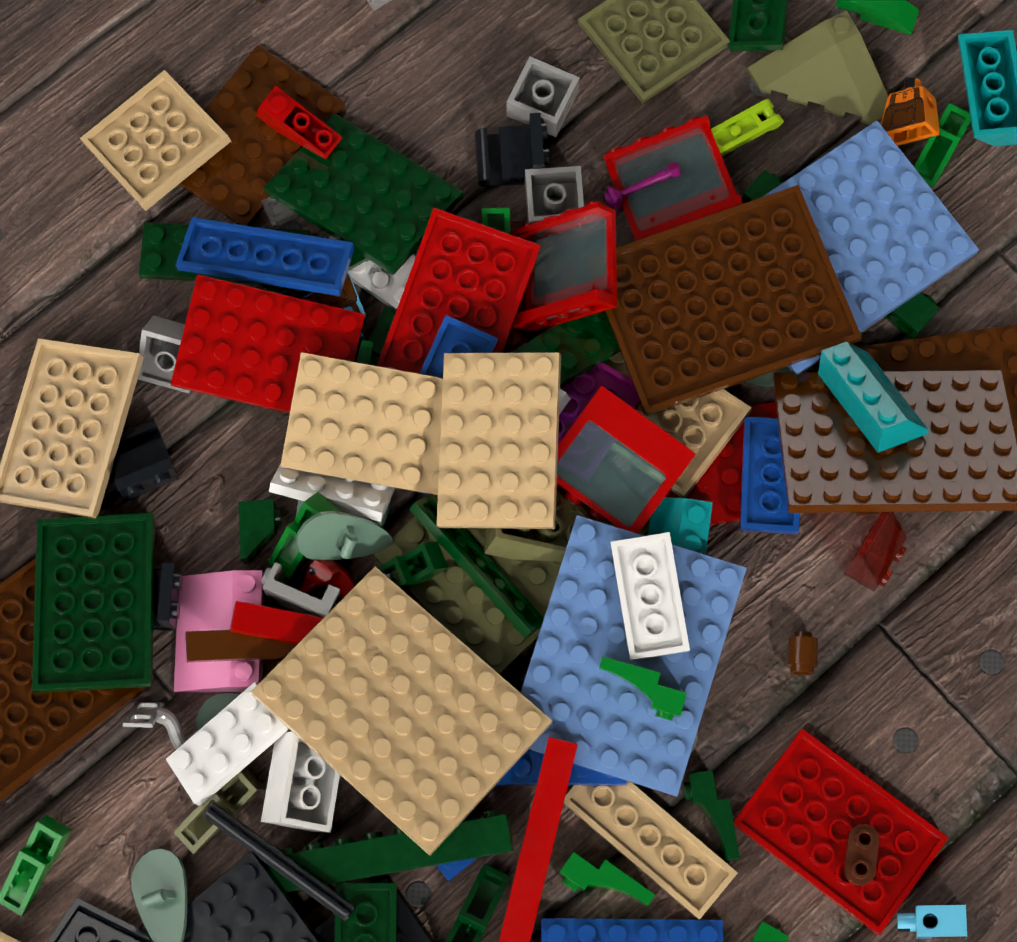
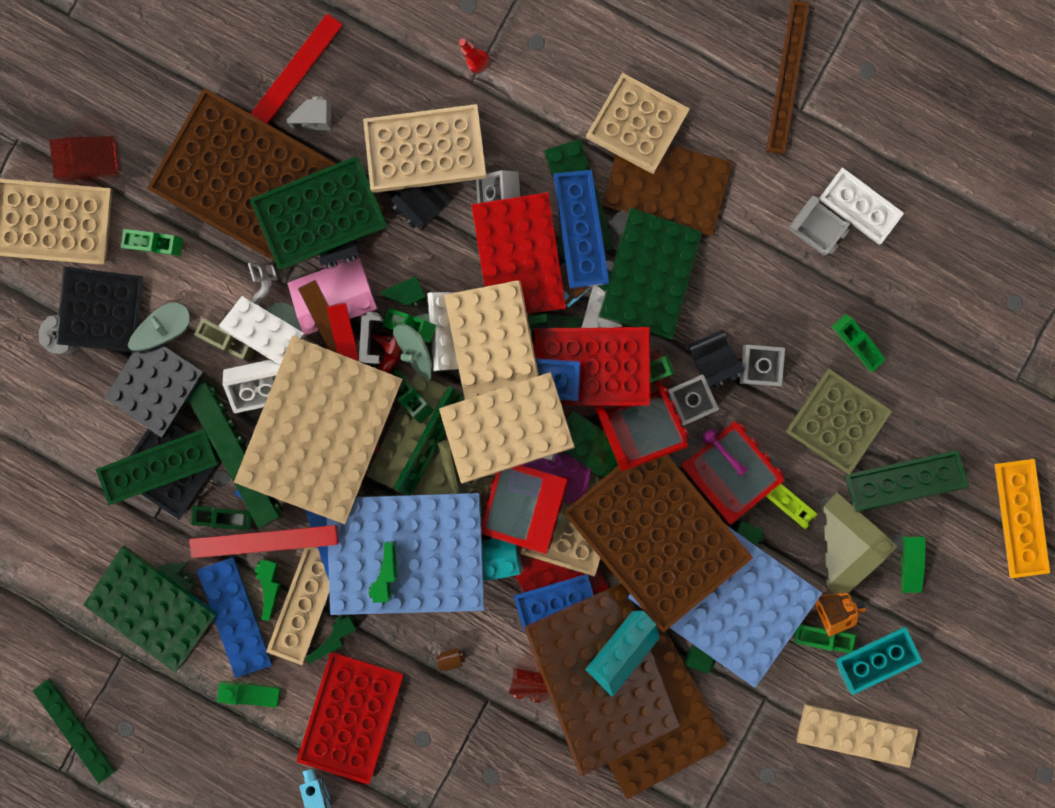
camera: 70 degrees right, 15 degrees up
(279, 861) = (203, 390): black axle -> none
(297, 123) = (681, 213): red slope -> none
(650, 596) = (441, 557): white plate -> none
(861, 854) = (337, 736): copper plate -> none

